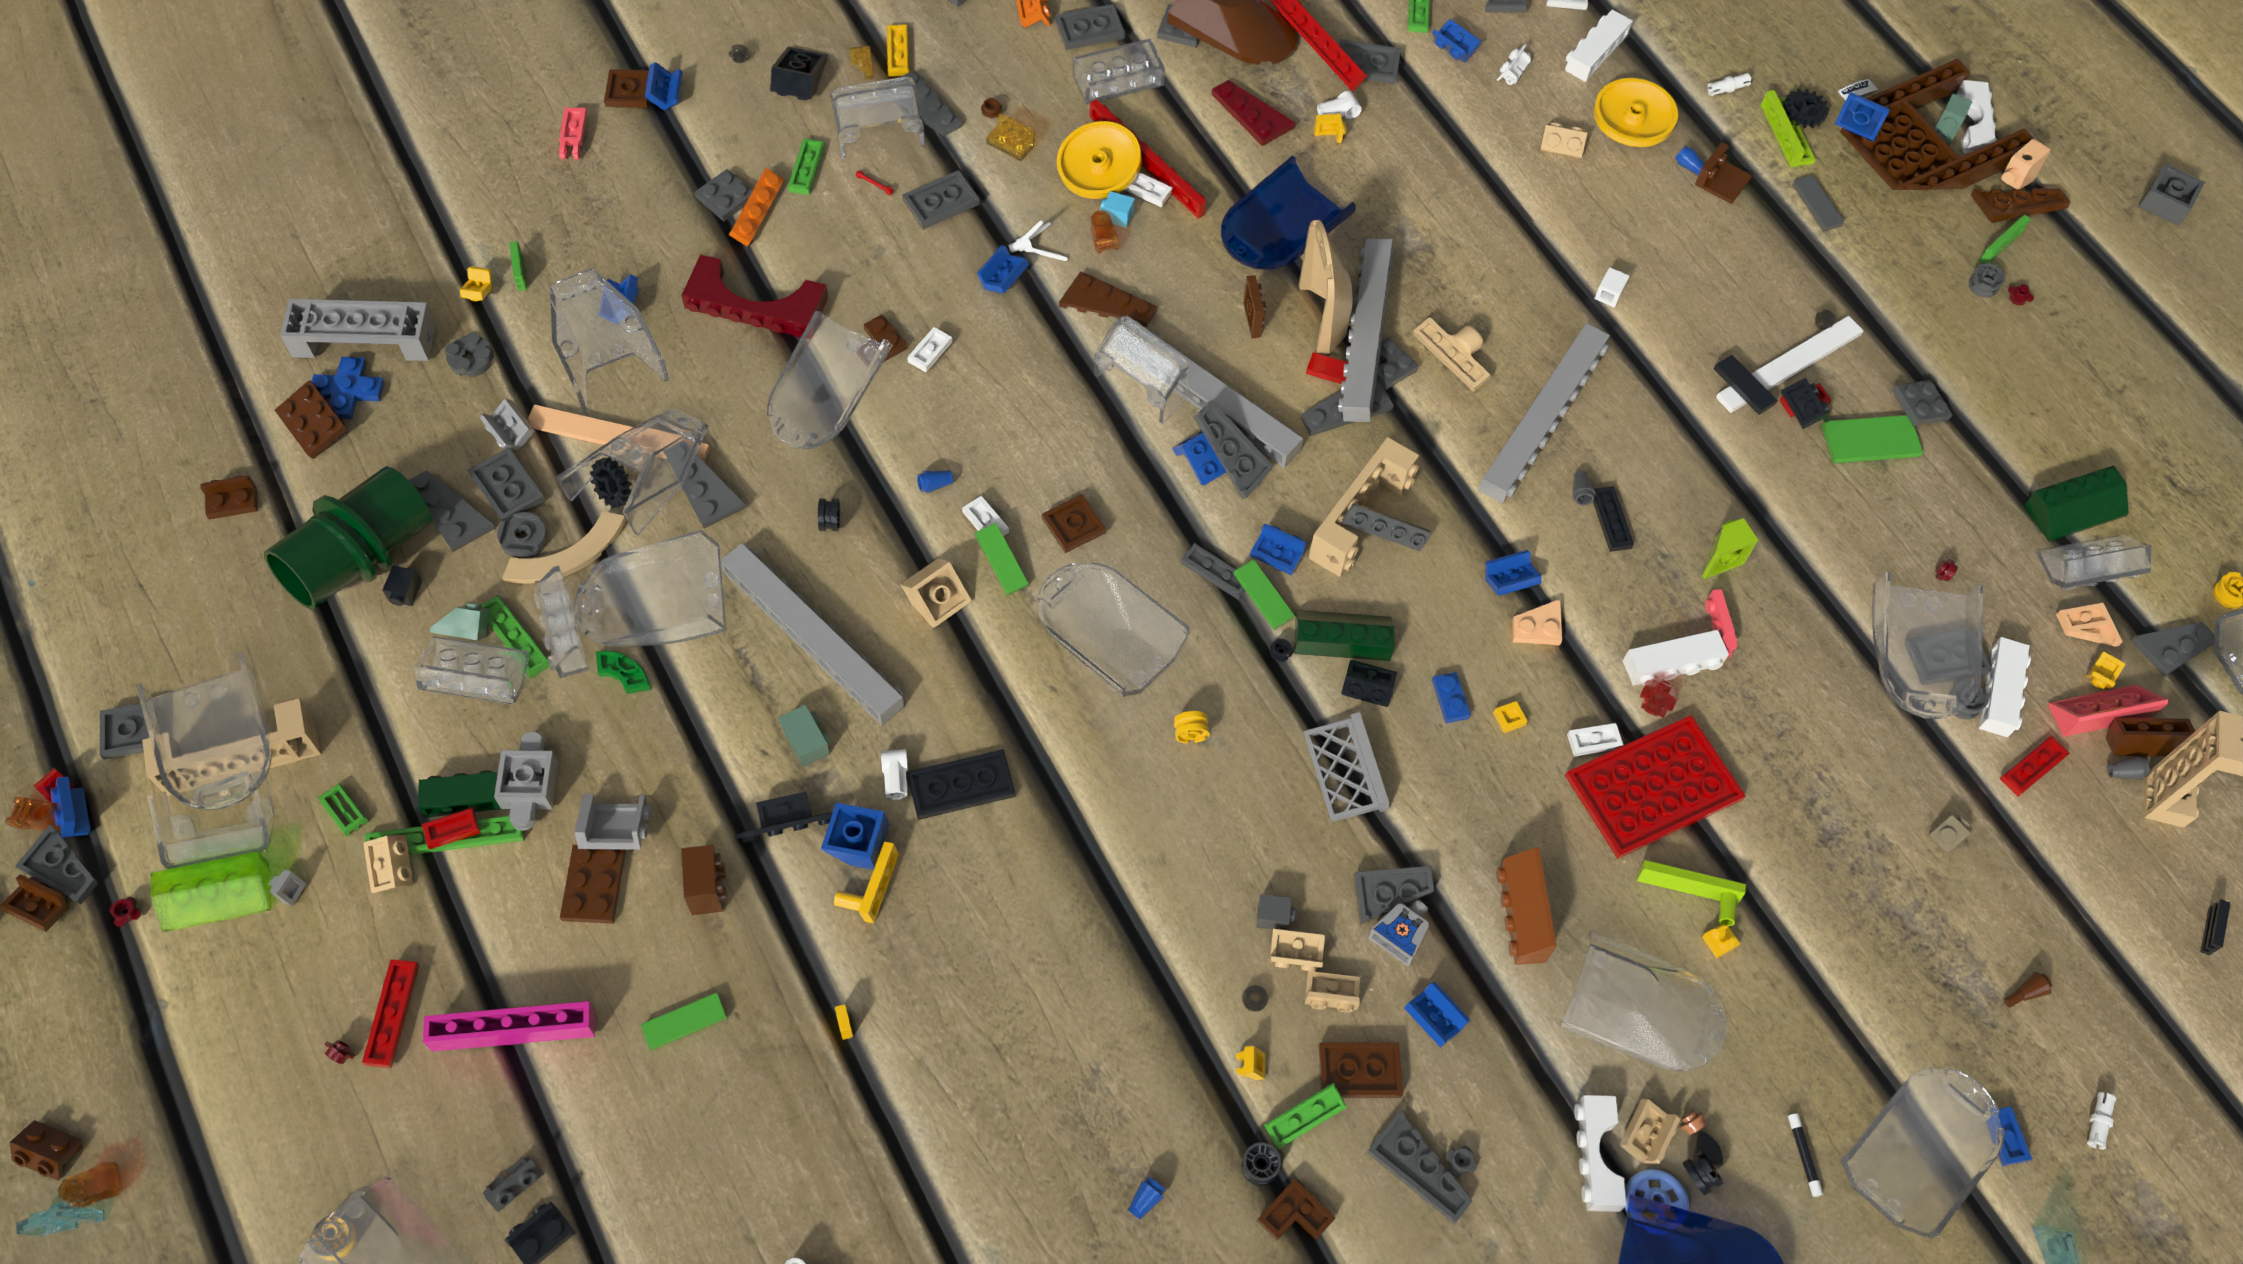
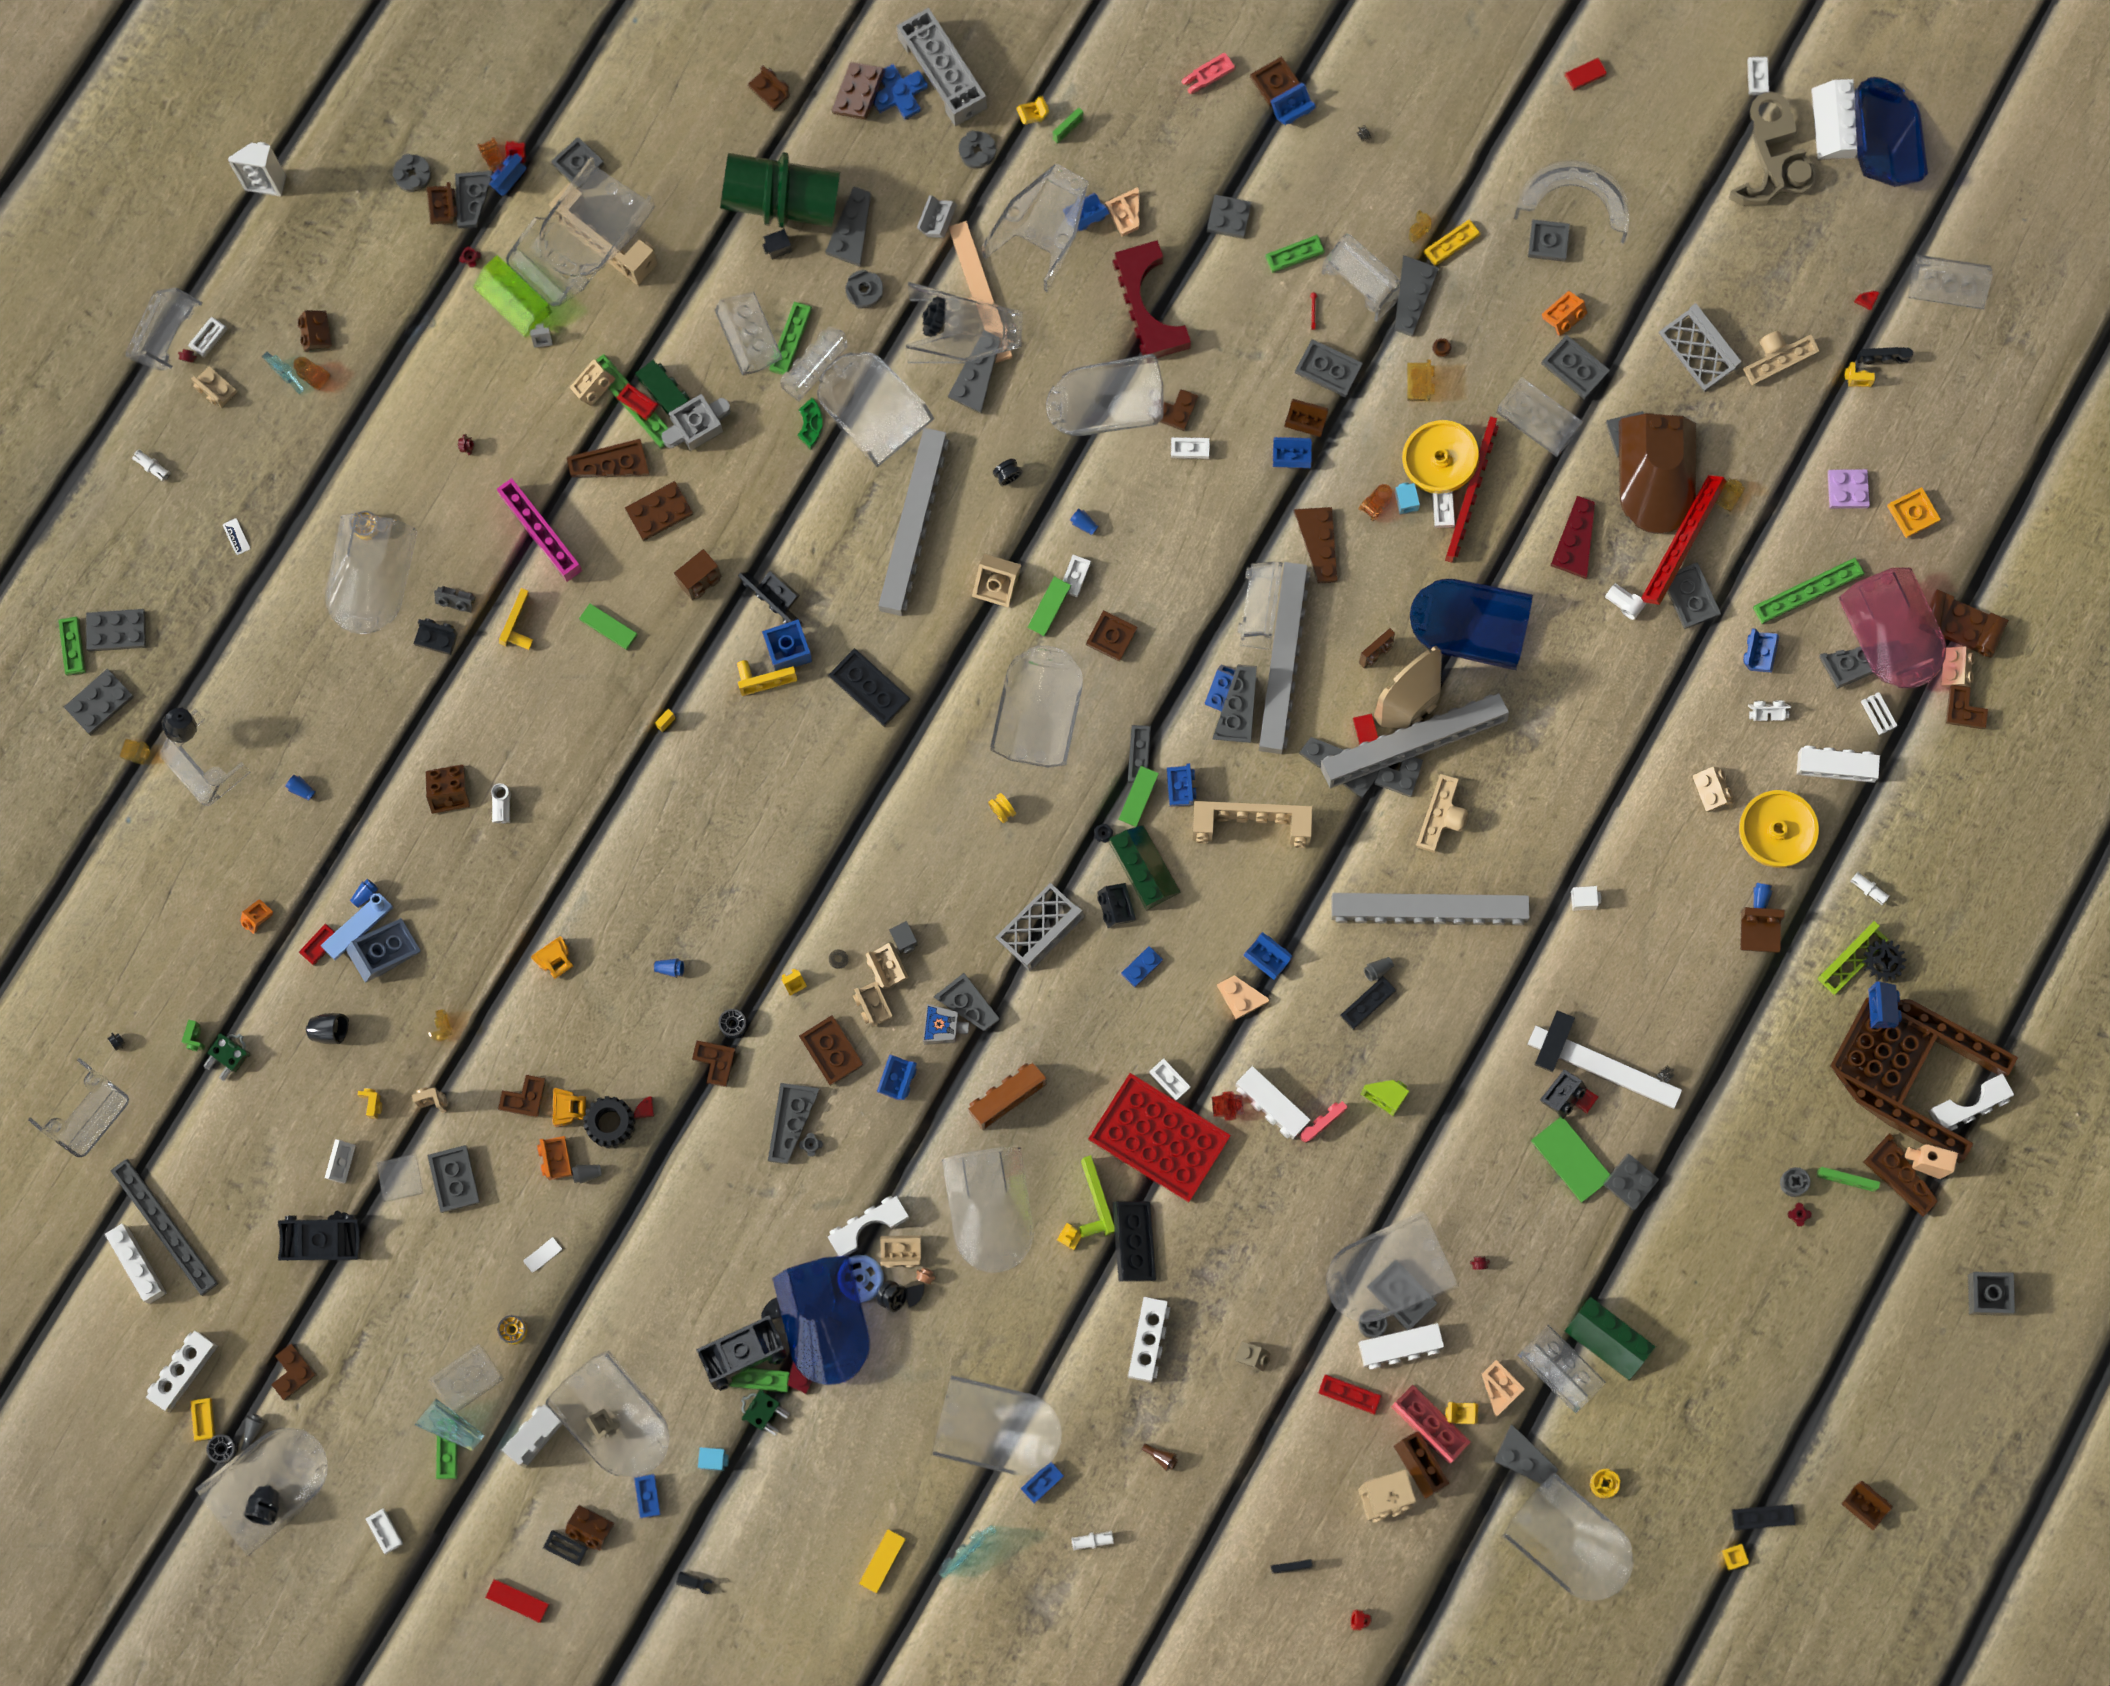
camera: 65 degrees right, 15 degrees up
(354, 825) = (617, 331): bright green tile -> none
(390, 1013) = (506, 455): red plate -> none
(464, 621) = (775, 303): slope -> none
(496, 896) = (615, 460): none -> reddish brown wing
(506, 485) = (893, 250): dark grey plate -> none
(571, 559) = (869, 332): tan tile -> none
(603, 1142) = (508, 634): none -> yellow piece
(611, 824) = (701, 494): light grey panel -> none
(648, 269) = (1125, 211): none -> light nougat wing
(756, 207) = (1231, 246): orange plate -> none
(797, 73) = (1376, 187): black slope -> none
(804, 735) = (837, 568): sand green brick -> none
(894, 769) = (852, 638): white piece -> none
(975, 240) = (1306, 417): none -> reddish brown bracket
(1024, 242) = (1330, 453): white plant -> none
(1305, 1116) = (779, 1032): bright green tile -> none
(1329, 125) = (1602, 602): yellow bracket -> none
(1386, 527) = (1244, 844): dark grey bracket -> none
(1510, 717) = (1152, 1014): yellow tile -> none
(1765, 874) = (1134, 1241): none -> black tile
(1805, 1155) = (949, 1358): black bar -> none
(1818, 203) = (1788, 1016): dark grey tile -> none
(1858, 88) = (1944, 995): white sticker -> none
(1891, 939) = (1137, 1369): none -> white brick
(1952, 117) = (1946, 1081): sand green brick -> none
(2130, 768) = (1388, 1461): dark grey cone -> none

